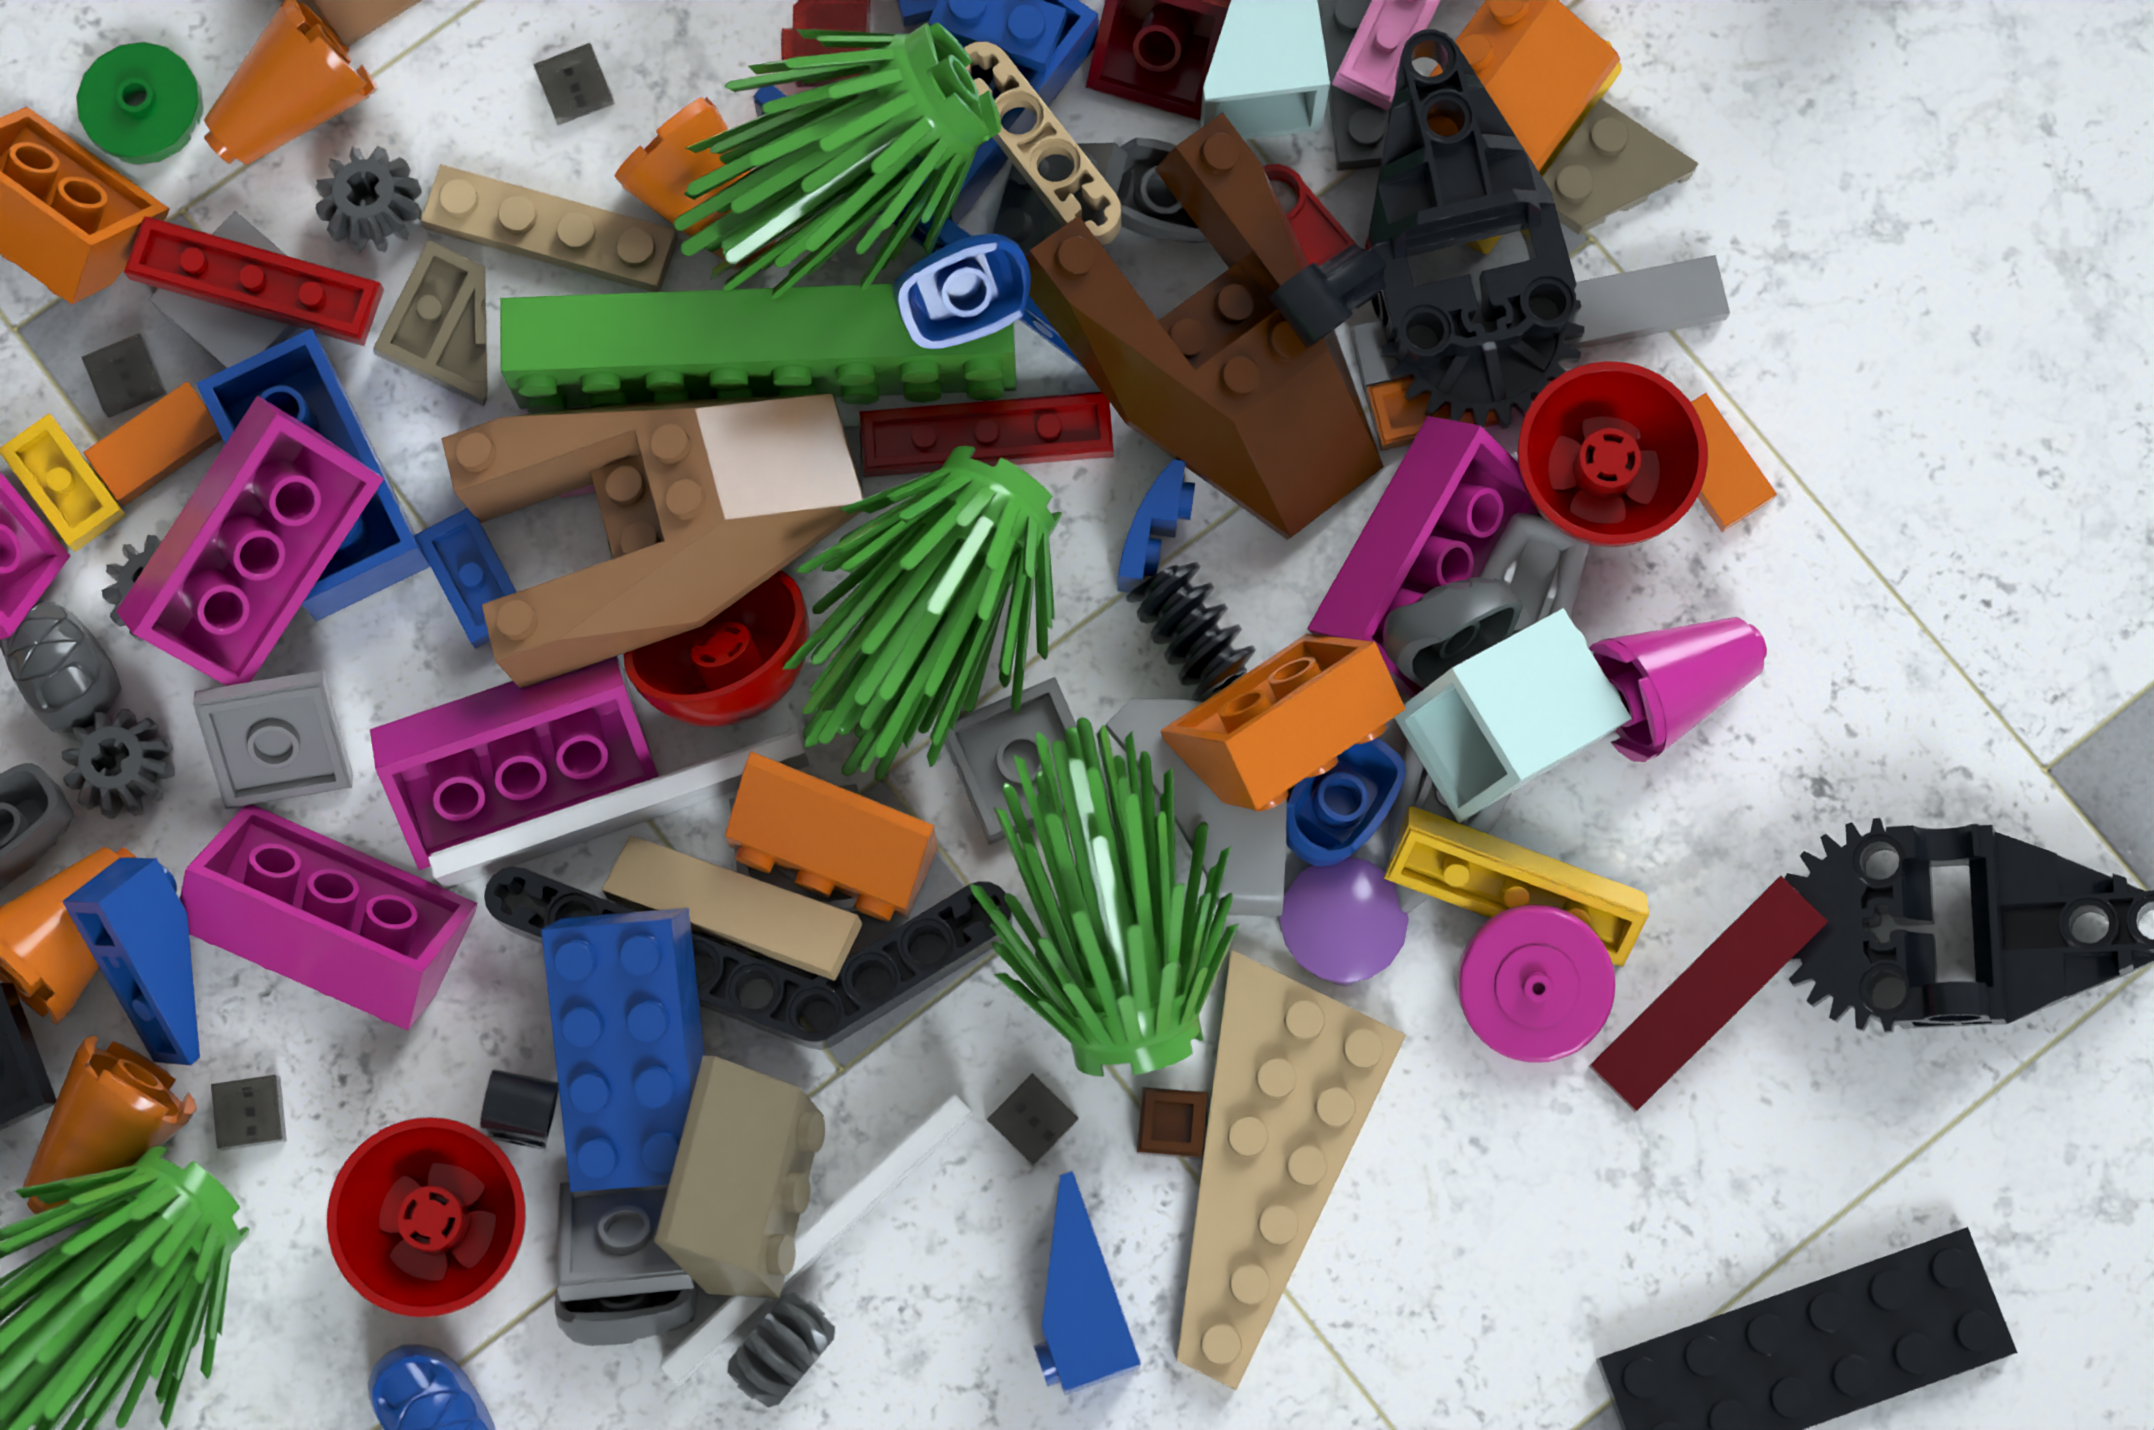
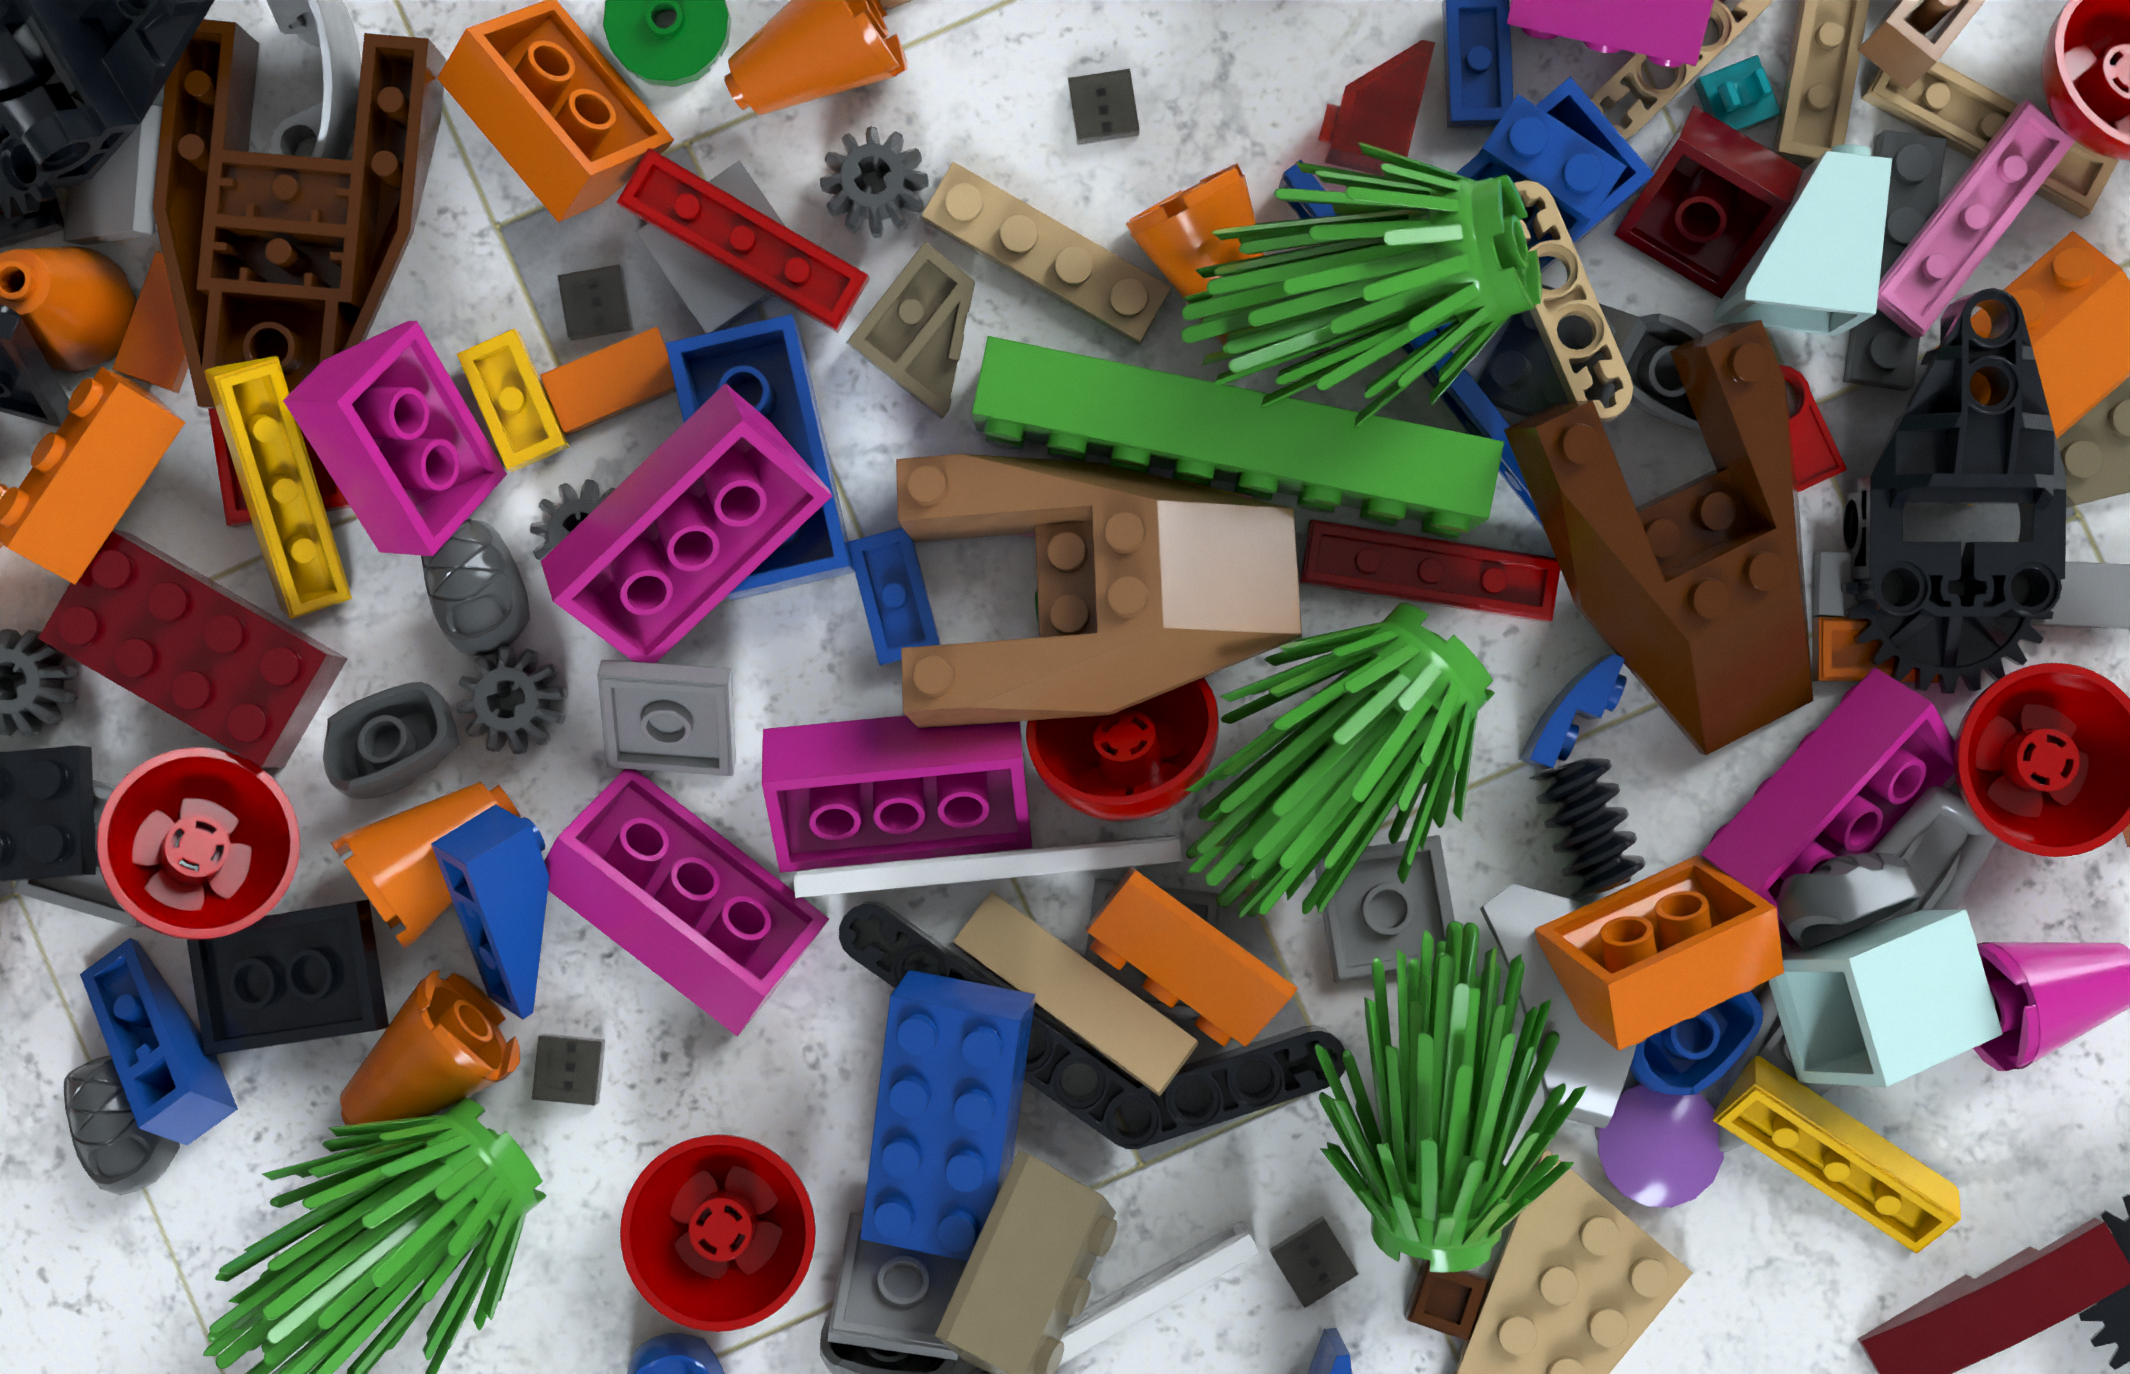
camera: 15 degrees right, 10 degrees up
(519, 1109) = (833, 1141): black piece -> none
(963, 291) = (1457, 451): blue piece -> none
(1326, 294) = (1814, 537): black piece -> none
(1535, 983) = (1832, 1256): dark pink wheel -> none

